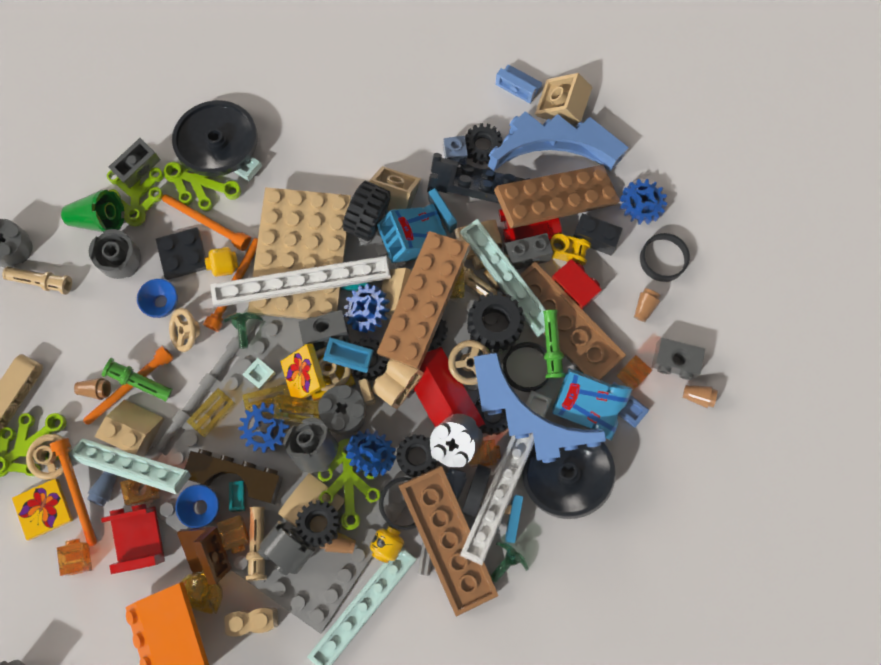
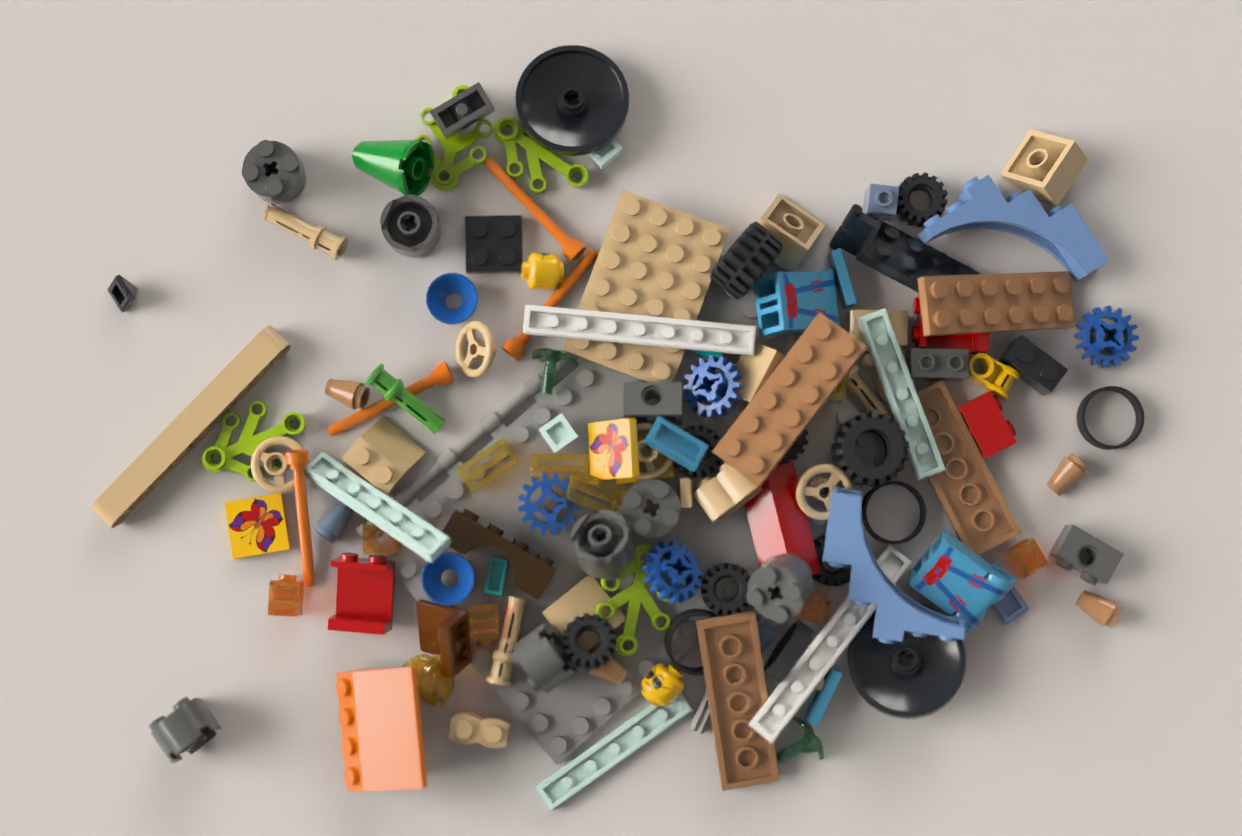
camera: 15 degrees right, 10 degrees up
(518, 83) = (991, 125): medium blue panel -> none
(553, 356) = (930, 511): bright green pin -> none

